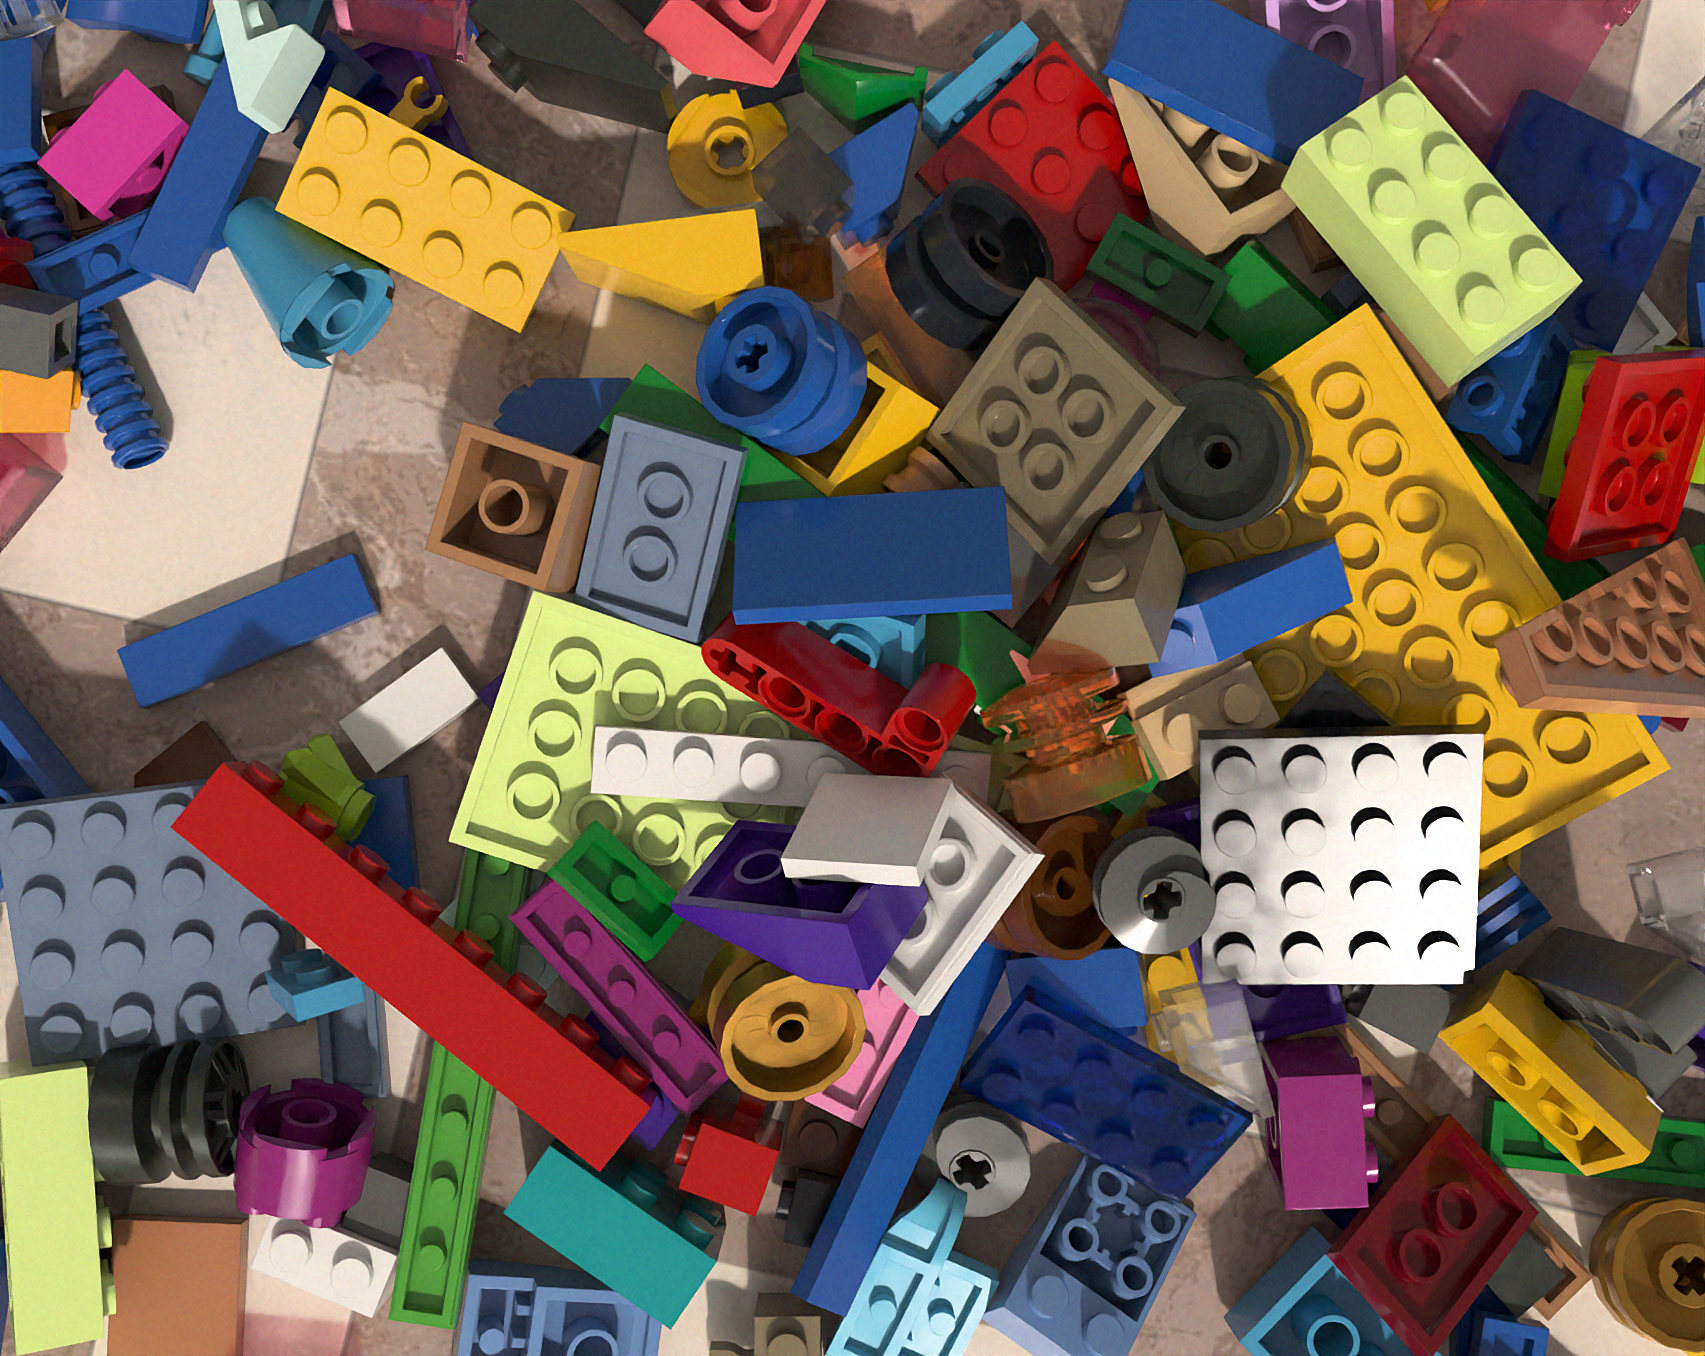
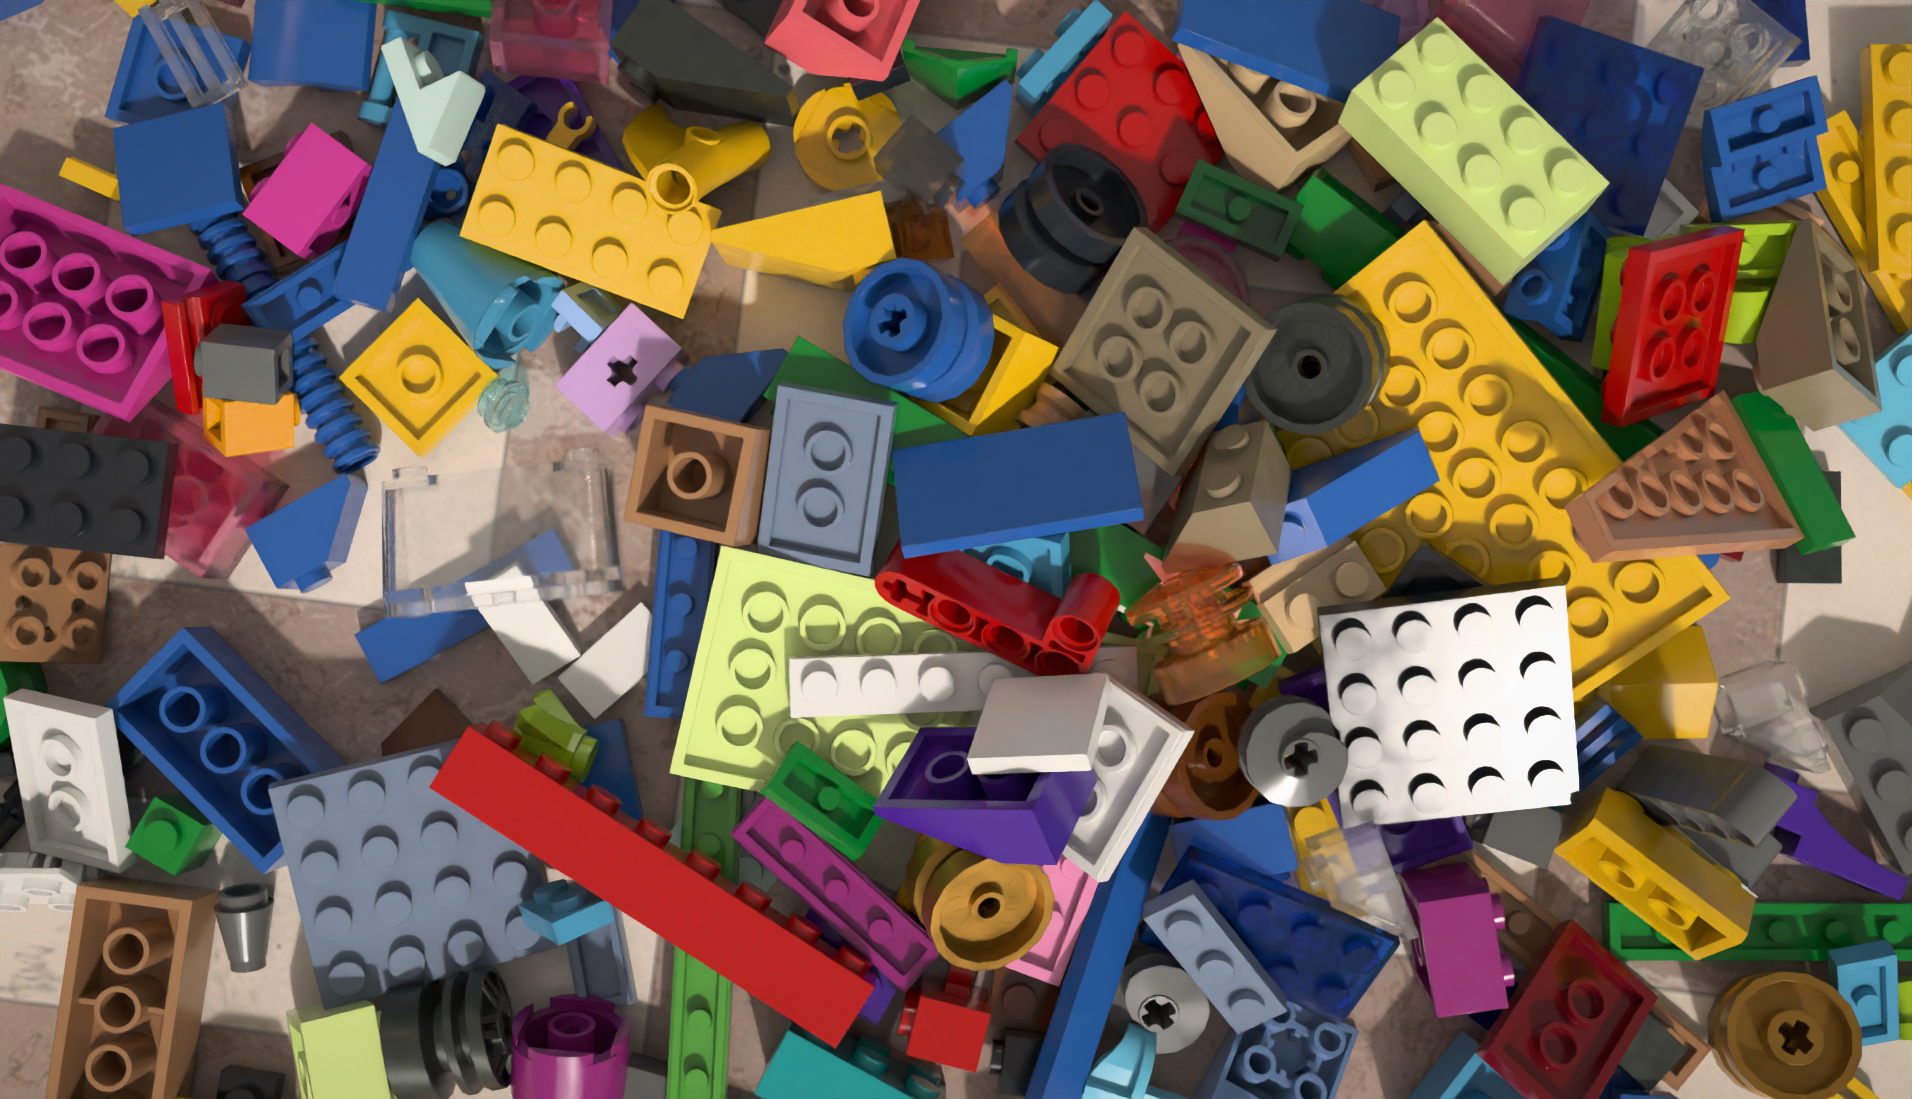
camera: 10 degrees left, 0 degrees up
(79, 532) = (310, 534): none -> blue slope
(221, 370) = (419, 378): none -> yellow plate
(273, 153) = (455, 209): none -> blue plate
(289, 556) = (501, 536): none -> clear windscreen
(308, 655) = (533, 637): none -> white tile
(311, 409) = (504, 404): none -> clear light blue plate
(416, 393) = (597, 386): none -> lavender brick
(419, 317) = (587, 311): none -> tile
(481, 654) = (679, 609): none -> blue tile
(555, 150) = (696, 154): none -> yellow pin
(1042, 1113) = (1214, 956): none -> sand blue plate
(1587, 866) = (1669, 689): none -> yellow slope

